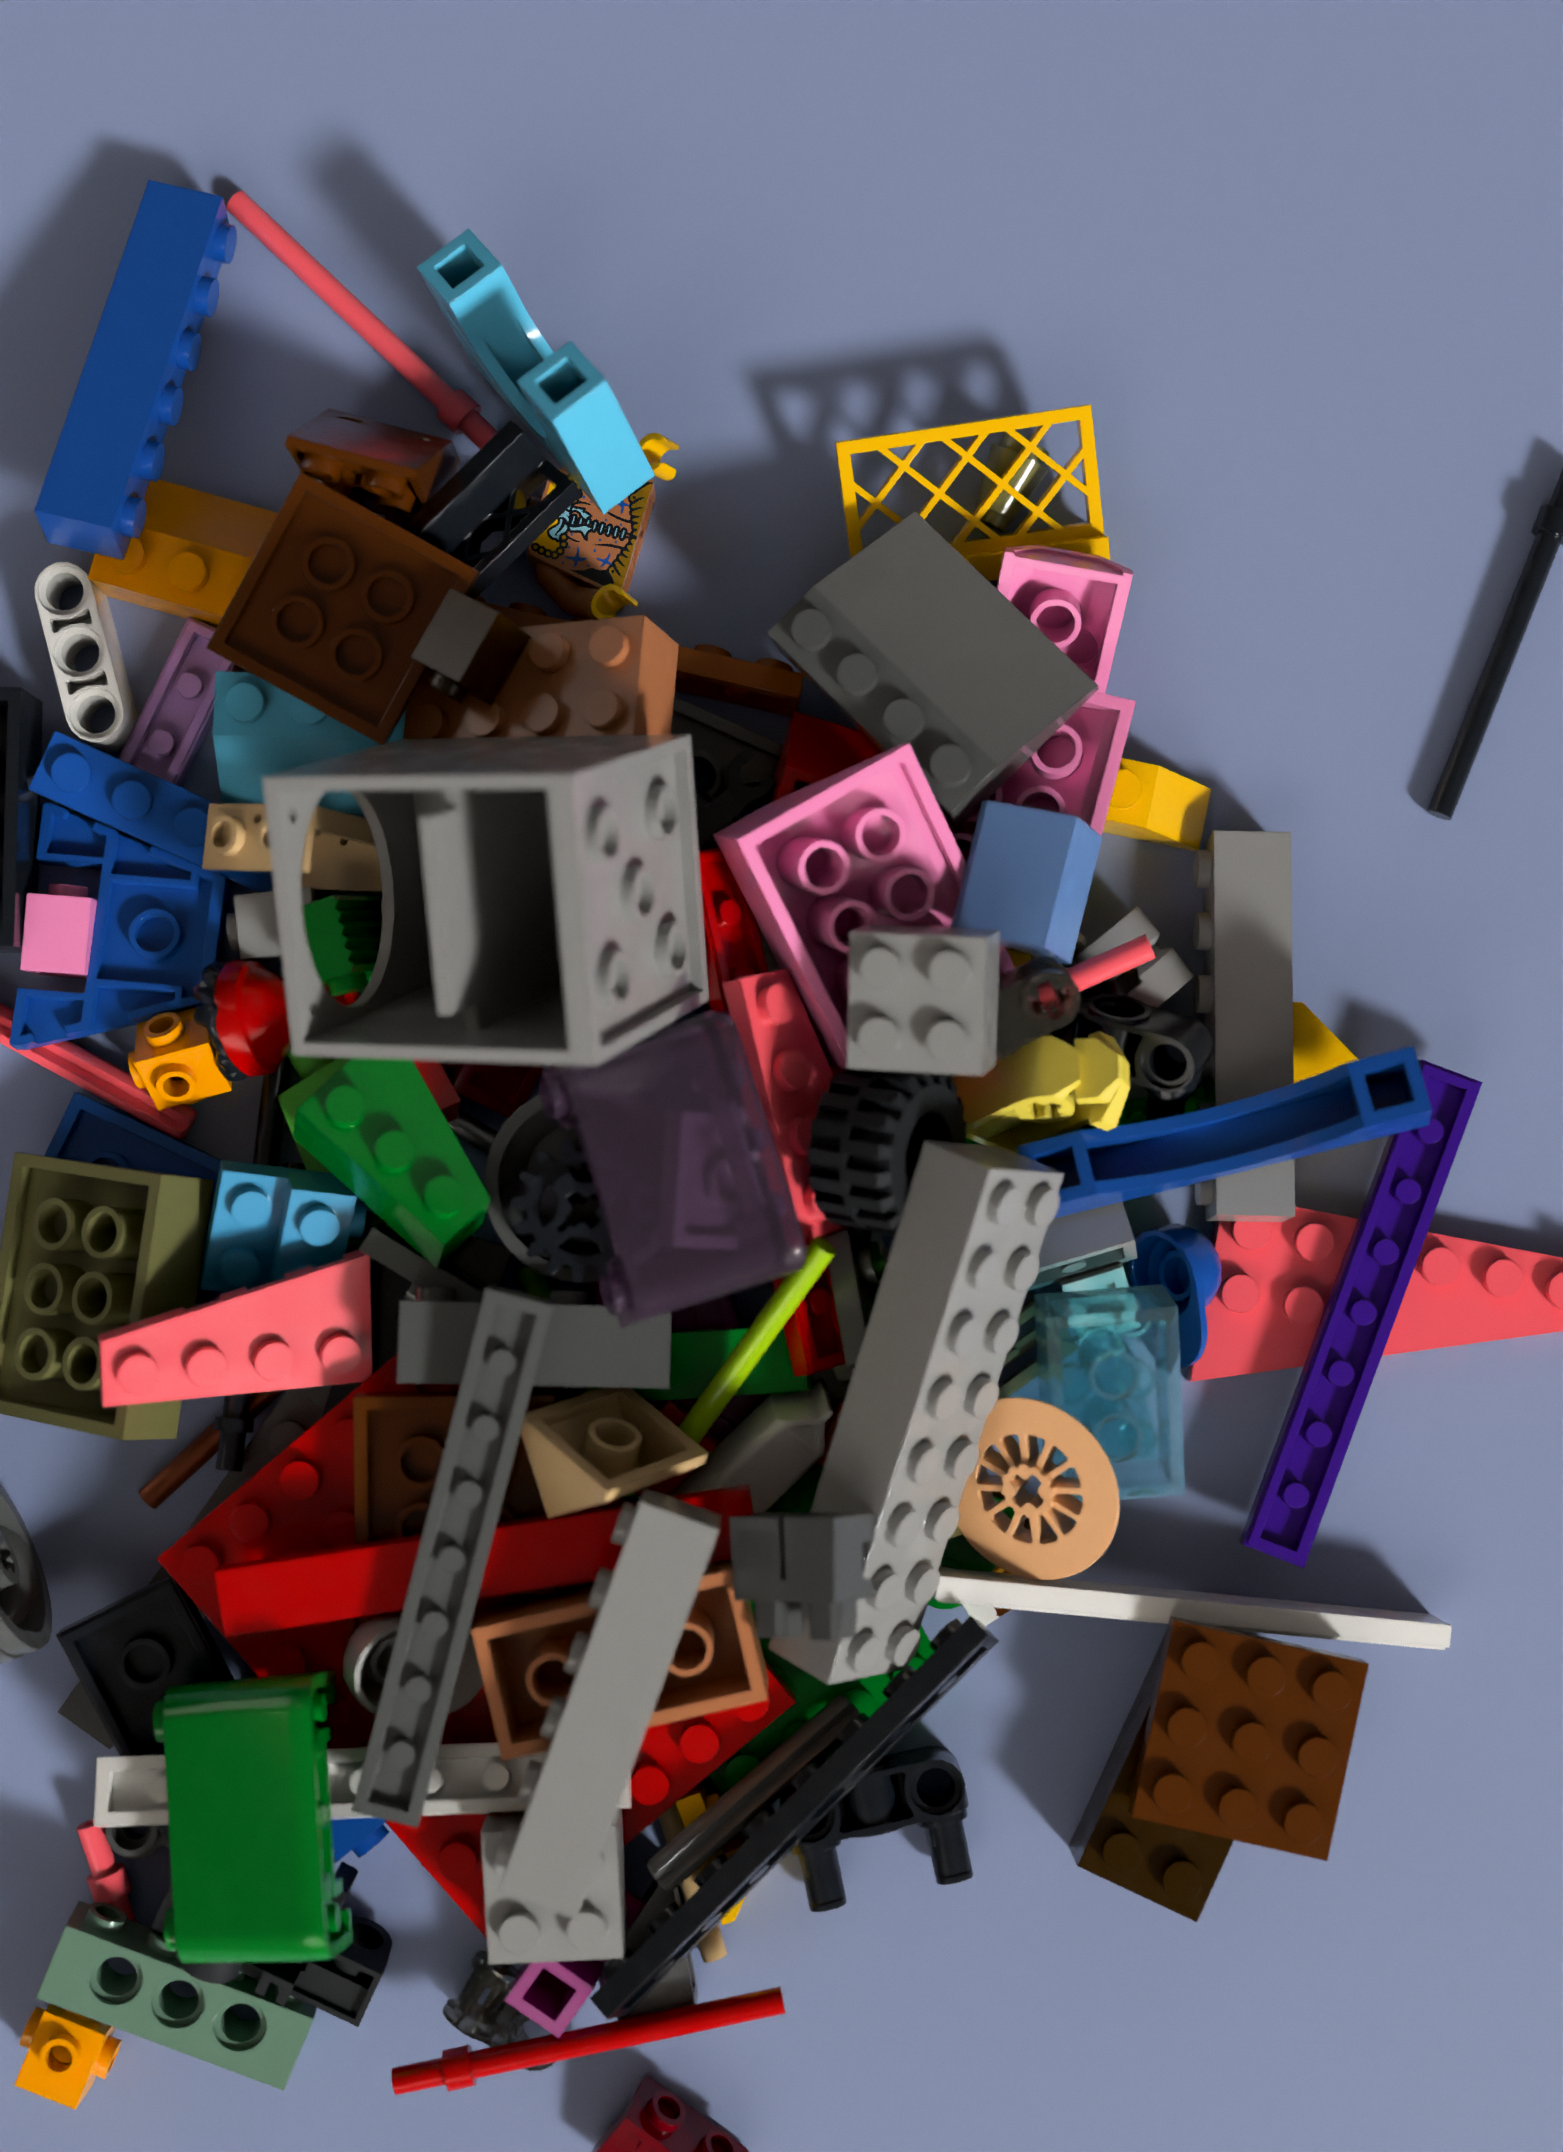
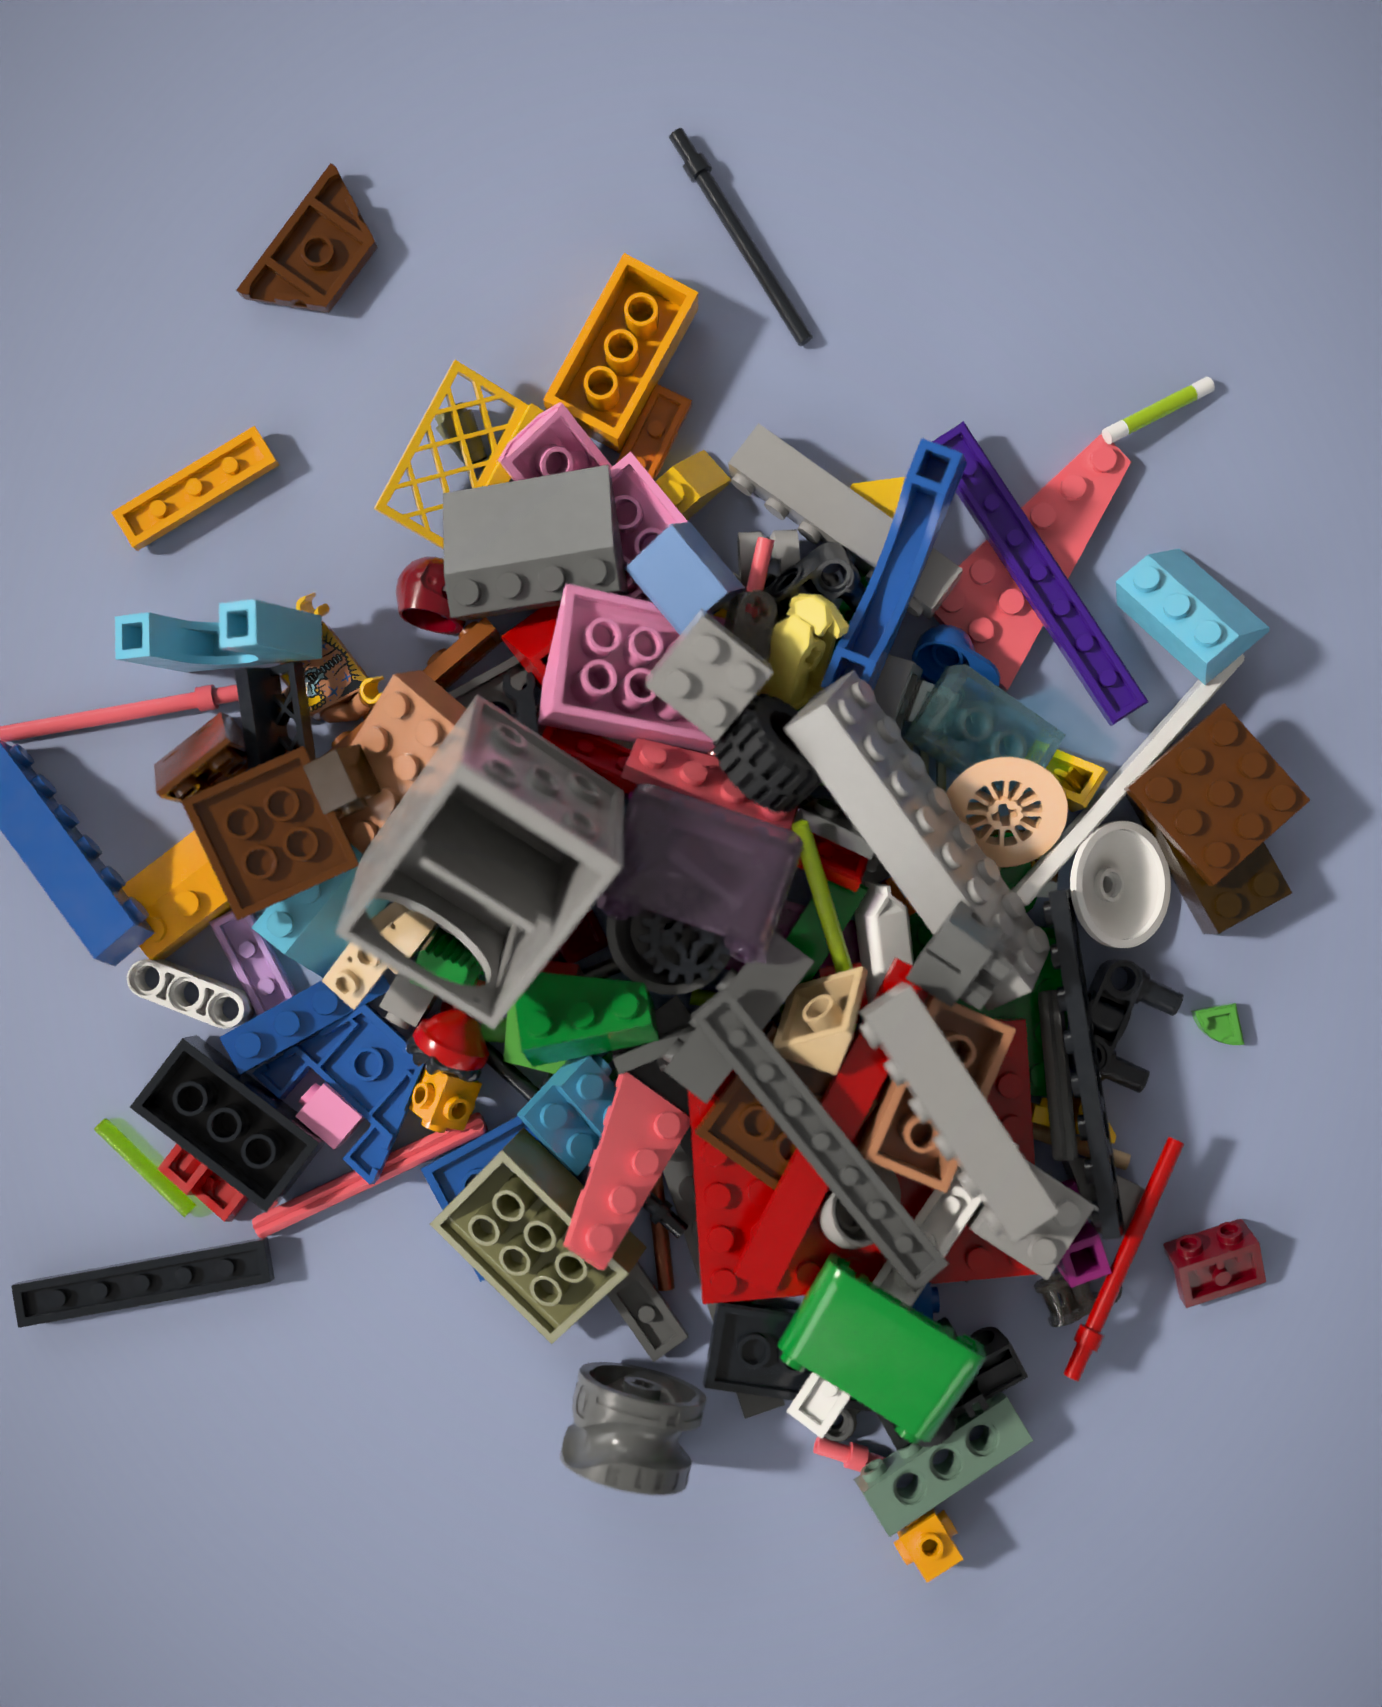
camera: 55 degrees left, 0 degrees up
(99, 1499) = (647, 1313): none -> dark grey plate
(703, 209) = (195, 488): none -> light orange plate
(772, 580) = (424, 598): none -> dark red helmet
(972, 1948) = (1220, 1023): none -> bright green tile
(1050, 1698) = (1120, 884): none -> white dish
(1100, 138) = (314, 251): none -> reddish brown wing
(1140, 1546) = (1077, 777): none -> yellow slope
(1191, 713) = (657, 429): none -> orange tile
(1256, 601) = (623, 350): none -> light orange brick
(1452, 1537) = (1188, 612): none -> medium azure slope

